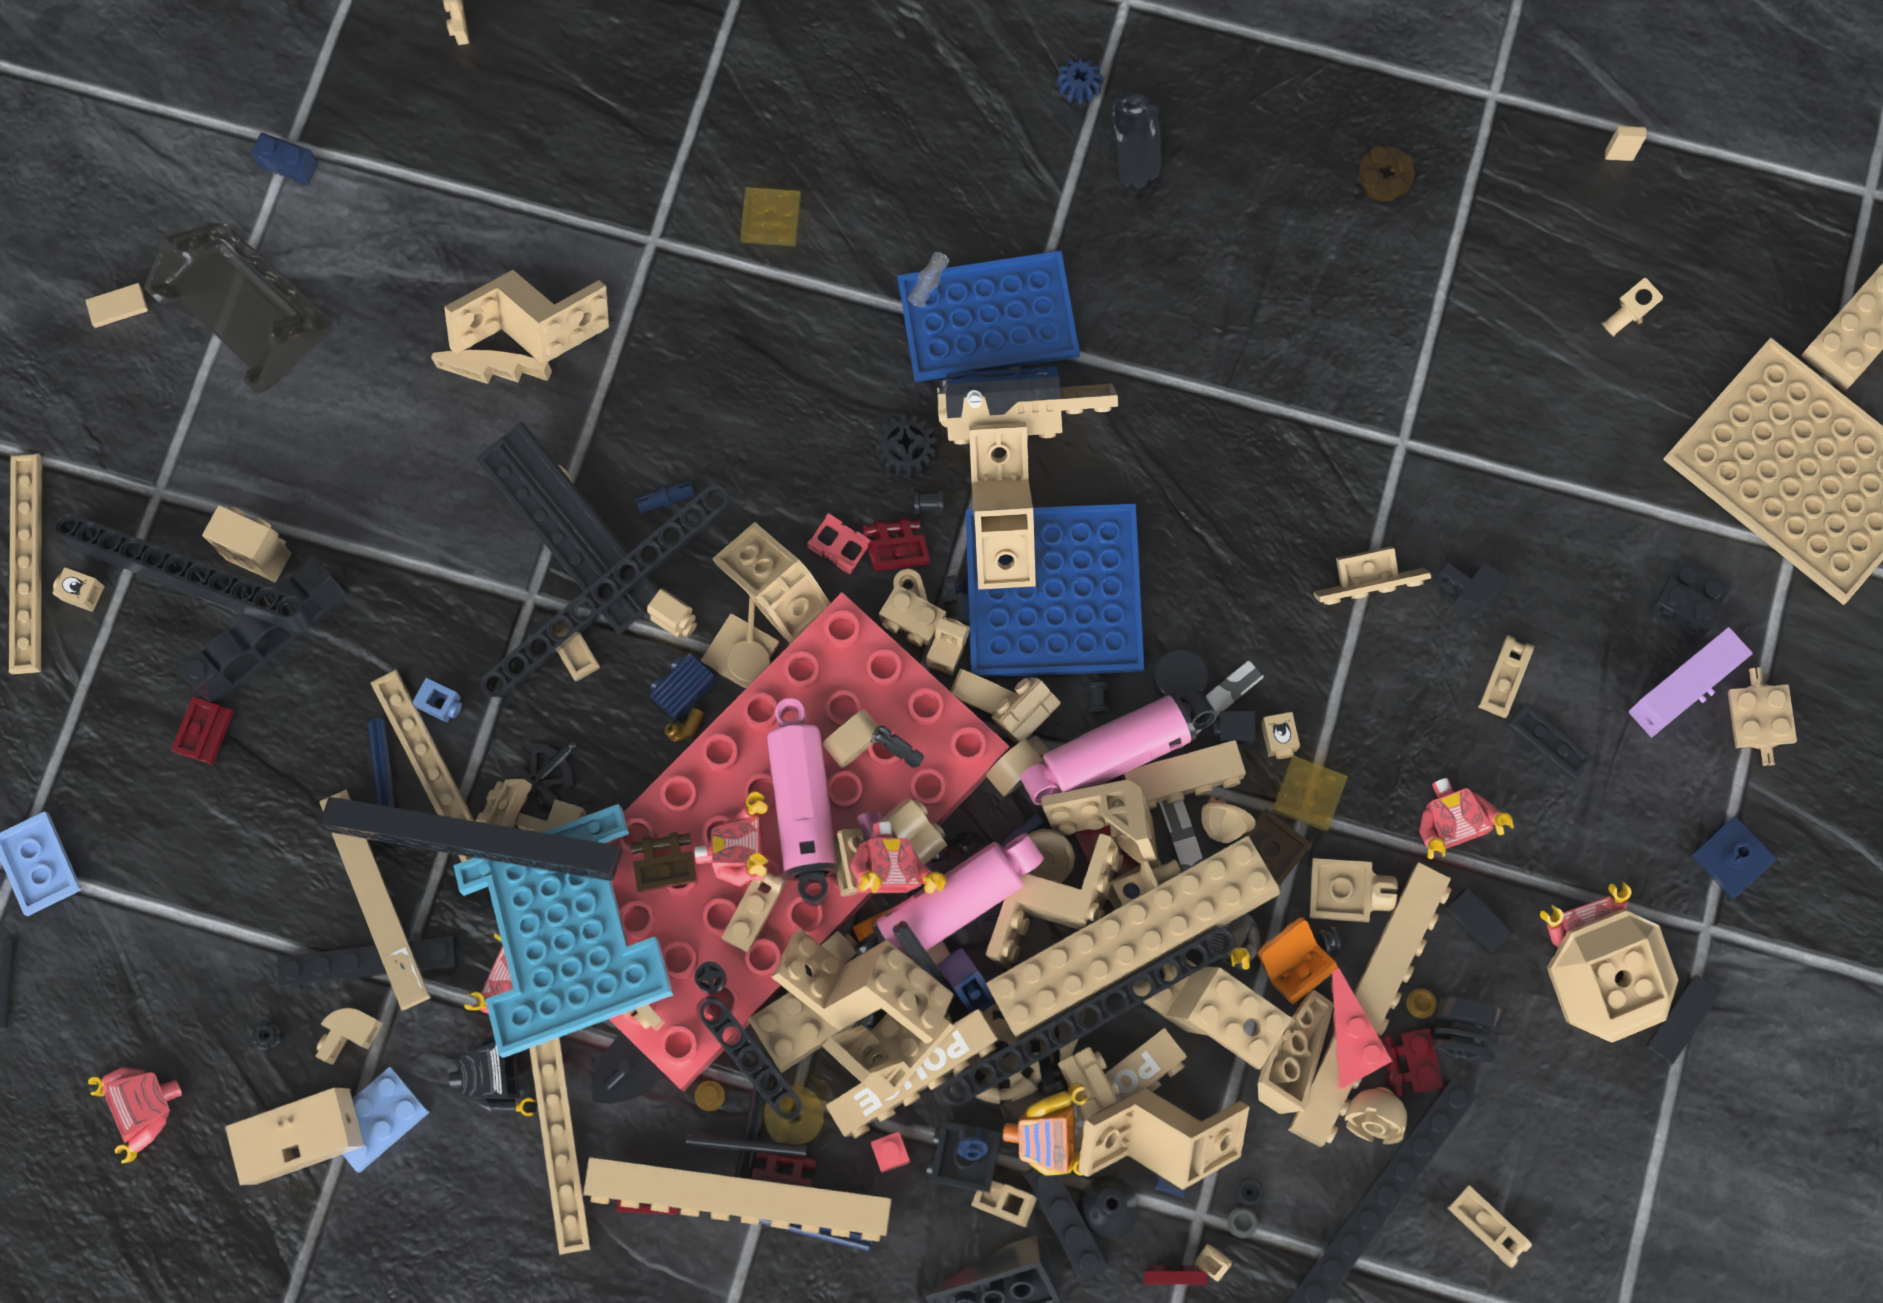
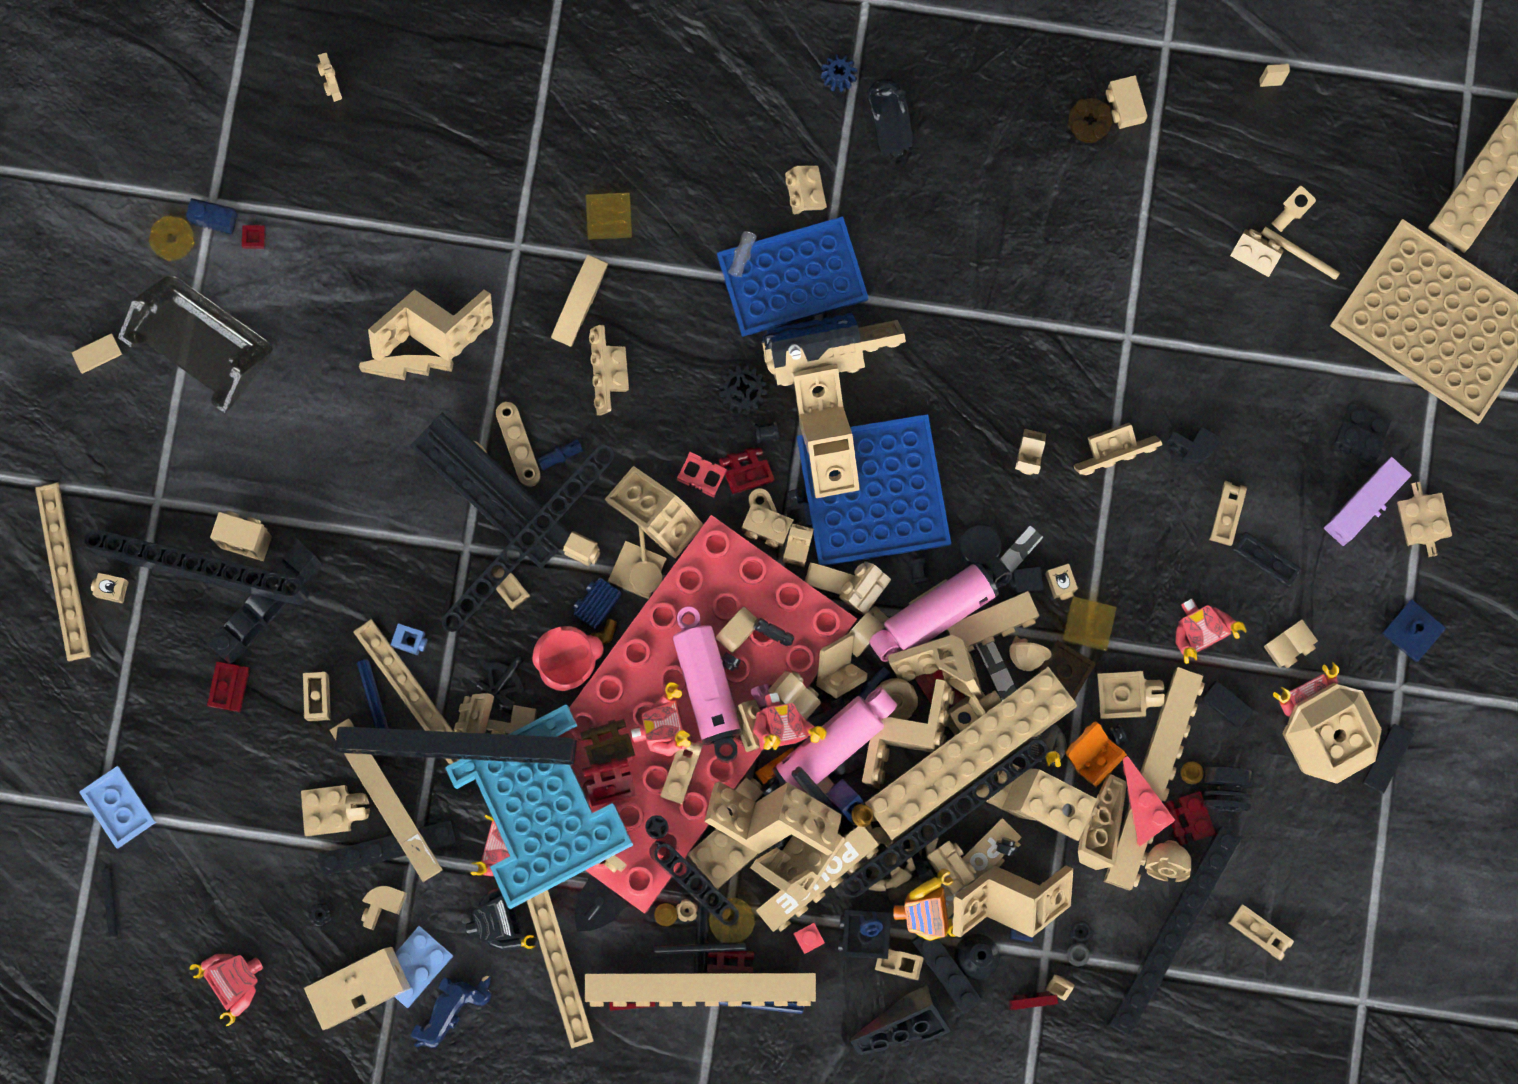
camera: 15 degrees left, 5 degrees up
(238, 193) = (183, 243): none -> clear yellow plate
(305, 903) = (332, 810): none -> tan plate
(309, 756) = (316, 696): none -> tan brick
(331, 189) = (253, 236): none -> dark red plate
(407, 1179) = (447, 1008): none -> dark blue animal
(615, 478) = (518, 444): none -> tan plate
(630, 747) = (566, 657): none -> coral piece
(657, 919) = (611, 787): none -> dark red plate
(718, 312) = (579, 300): none -> tan slope
(730, 1090) = (691, 915): none -> tan plate
(742, 400) = (608, 369): none -> tan bracket
(837, 777) = (730, 661): none -> black plate
(973, 806) = (835, 669): none -> tan bracket
(980, 998) = (862, 815): none -> pearl gold plate
(1019, 213) = (805, 189): none -> tan bracket
(1164, 1065) = (1006, 846): none -> black plate
(1260, 567) = (1030, 452): none -> tan brick
(1435, 156) = (1126, 102): none -> tan brick
(1570, 853) = (1290, 644): none -> tan brick
(1580, 357) = (1257, 252): none -> bracket
(1635, 365) = (1300, 253): none -> tan bar

